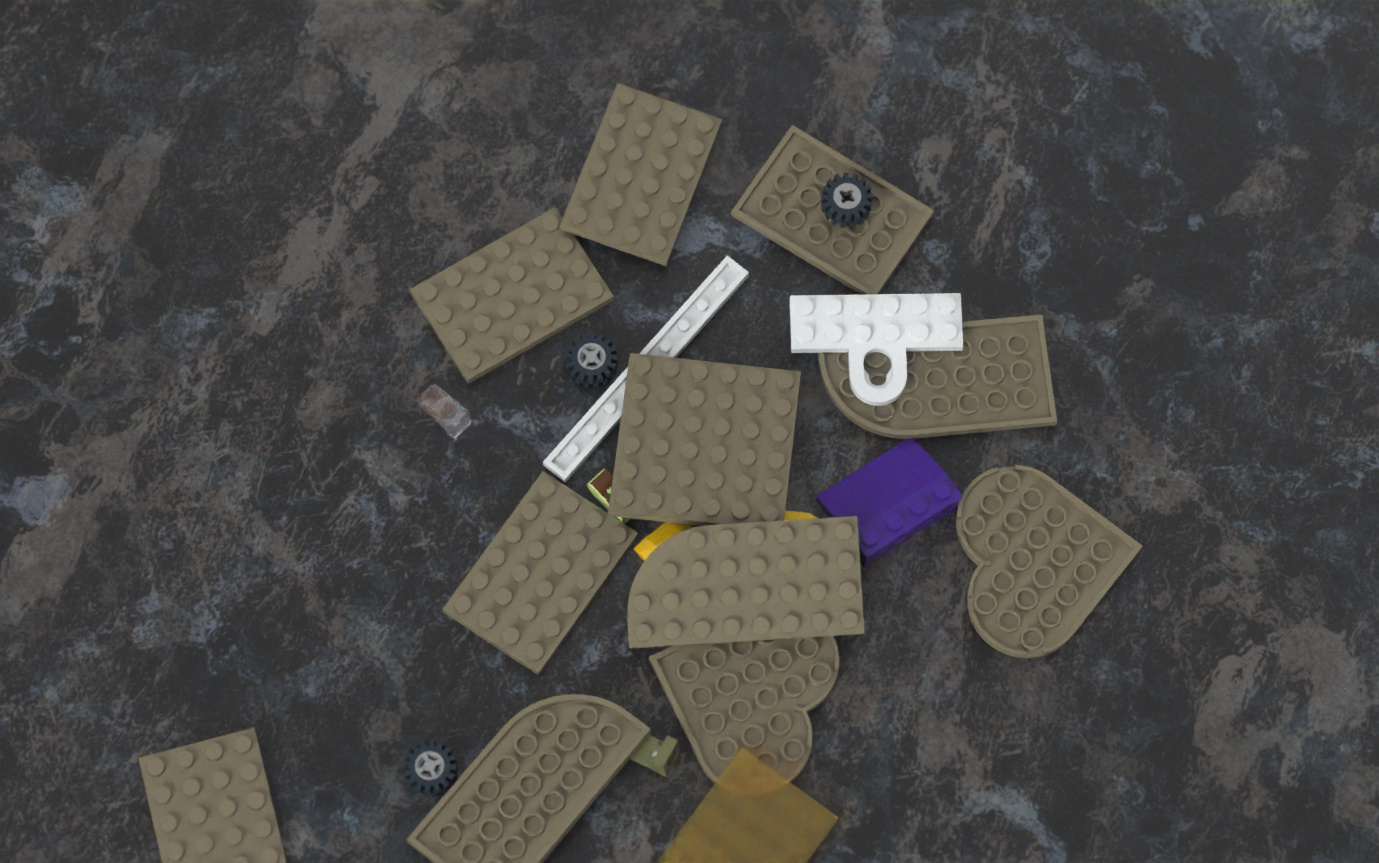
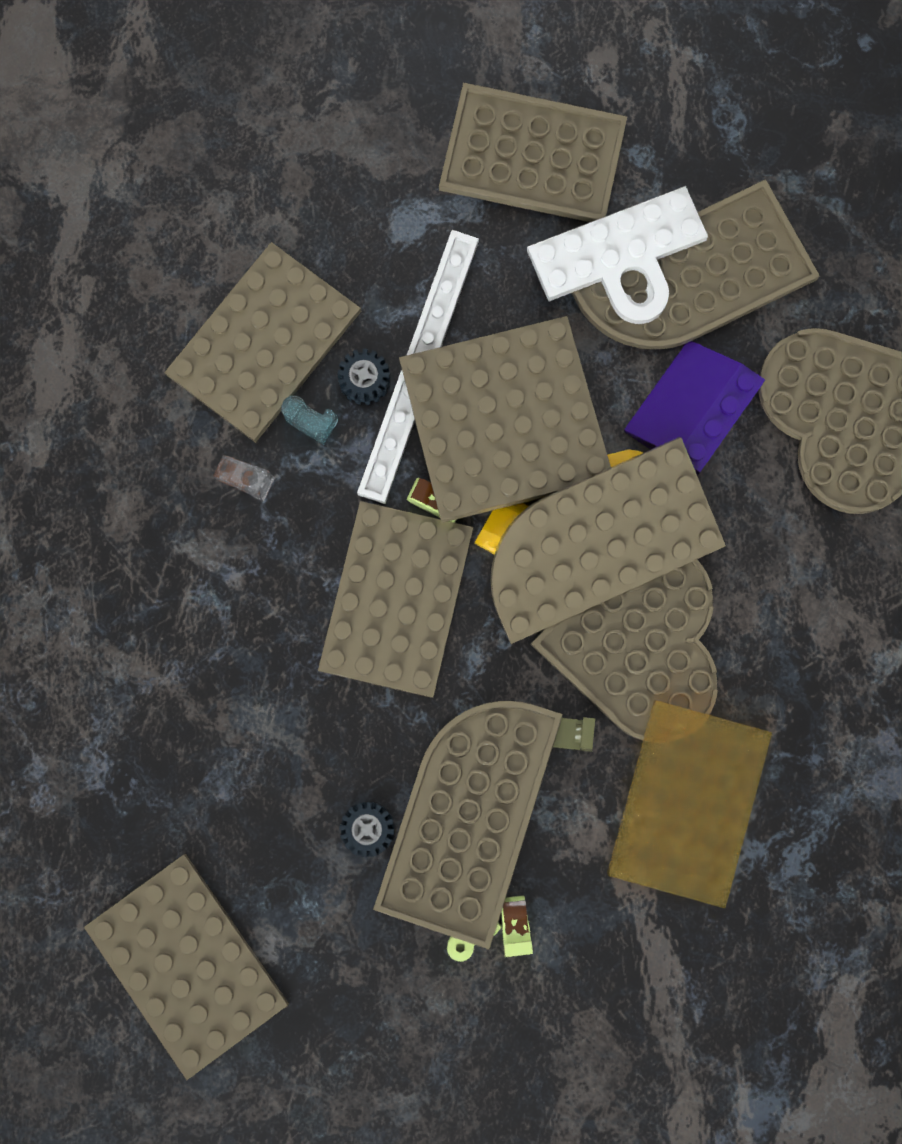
camera: 20 degrees left, 10 degrees up
(524, 380) = (307, 419): none -> clear light blue leg
(641, 174) = (340, 181): dark tan plate -> none
(849, 209) = (544, 145): black wheel -> none

